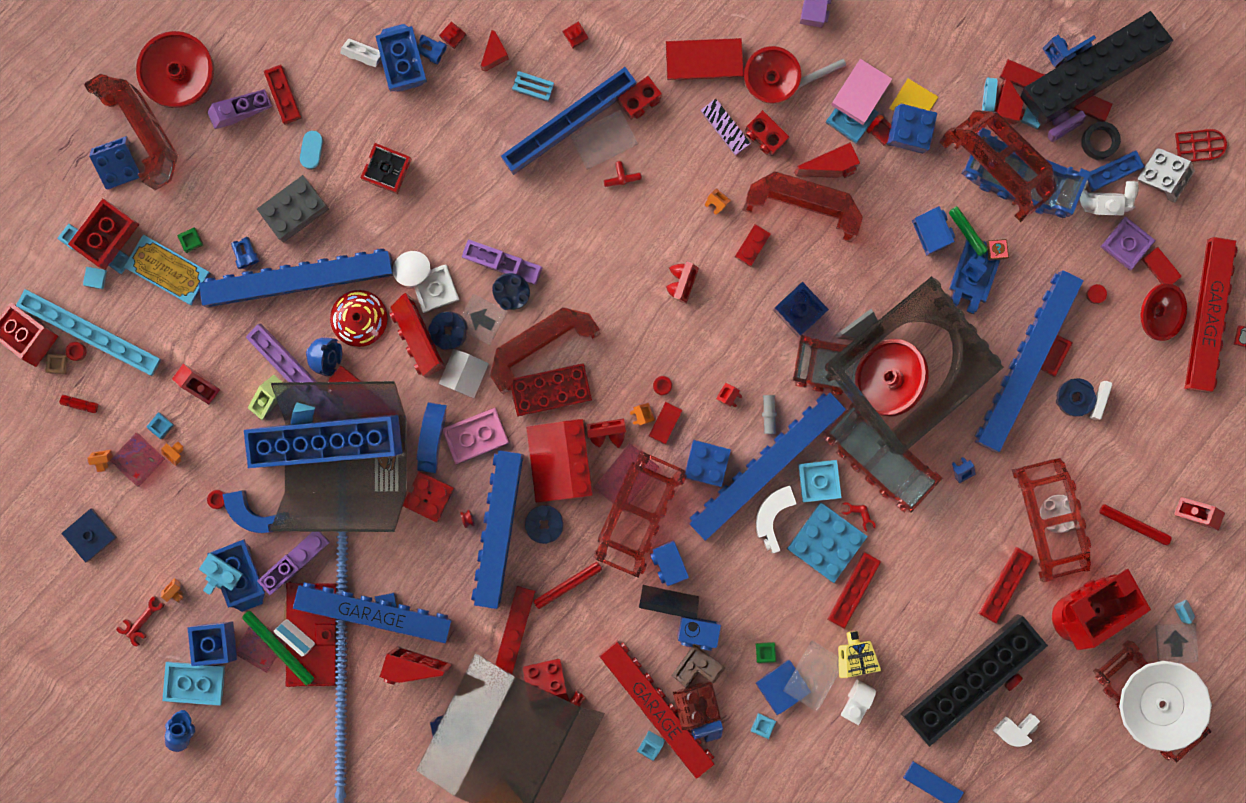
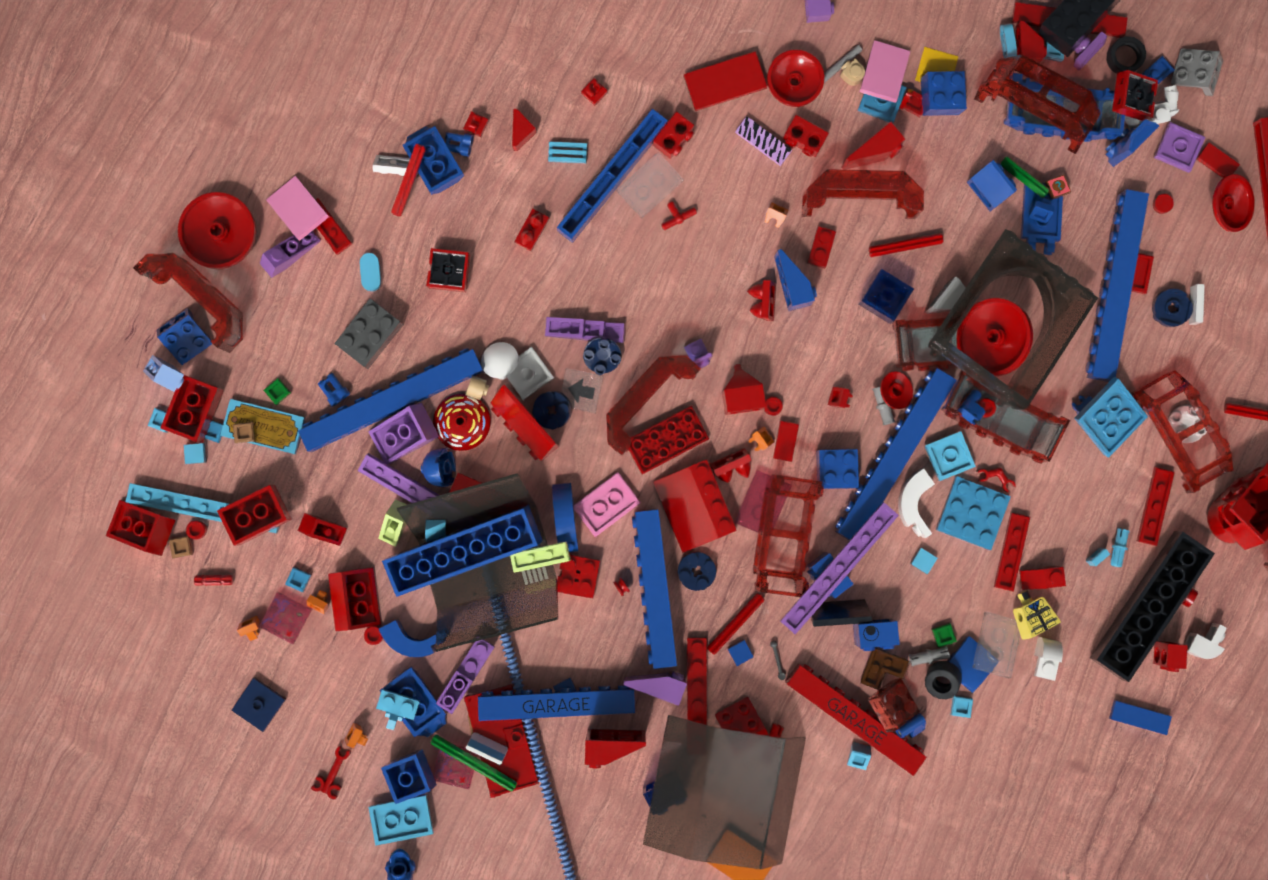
camera: 20 degrees left, 0 degrees up
(85, 193) = (164, 373): none -> light blue brick
(134, 352) = (254, 515): none -> red brick
(147, 270) = (244, 432): none -> medium nougat tile
(208, 459) = (354, 599): none -> red slope
(258, 69) = (297, 208): none -> bright pink tile
(299, 313) = (403, 433): none -> medium lavender slope
(371, 71) = (408, 180): none -> red axle
(382, 289) = (477, 388): none -> tan plate
(396, 468) = (540, 557): none -> yellowish green tile
(463, 373) = (578, 447): white slope -> none
(477, 151) = (531, 230): none -> red tile
(478, 624) = (661, 685): none -> medium lavender slope
(564, 614) = (740, 653): none -> blue tile
(598, 647) = (781, 675): none -> dark grey hinge
(604, 315) = (698, 353): none -> medium lavender bracket
(635, 365) = (743, 393): none -> red piece
(678, 558) = (839, 568): none -> medium lavender plate
(715, 274) = (794, 283): none -> blue slope
(745, 668) = (929, 656): none -> light grey pin
(757, 686) = (947, 670): none -> black tyre
(766, 575) = (923, 561): none -> medium azure tile
(792, 403) = (902, 389): none -> red dish
(830, 84) = (852, 72): none -> tan plate
(834, 265) = (905, 245): none -> red axle
(851, 442) = (970, 409): none -> blue piece
(867, 444) = (989, 407): none -> red tile
(876, 623) = (1042, 578): none -> red slope
(935, 618) = (1097, 557): none -> medium azure tile
(959, 615) = (1119, 547): none -> medium azure axle
(977, 732) = (1170, 655): none -> red brick
(985, 486) = (1111, 417): none -> dark azure plate
(1080, 223) = (1129, 142): none -> blue slope
(1093, 181) = (1134, 95): none -> piece
(1193, 142) = (1231, 36): red window -> none

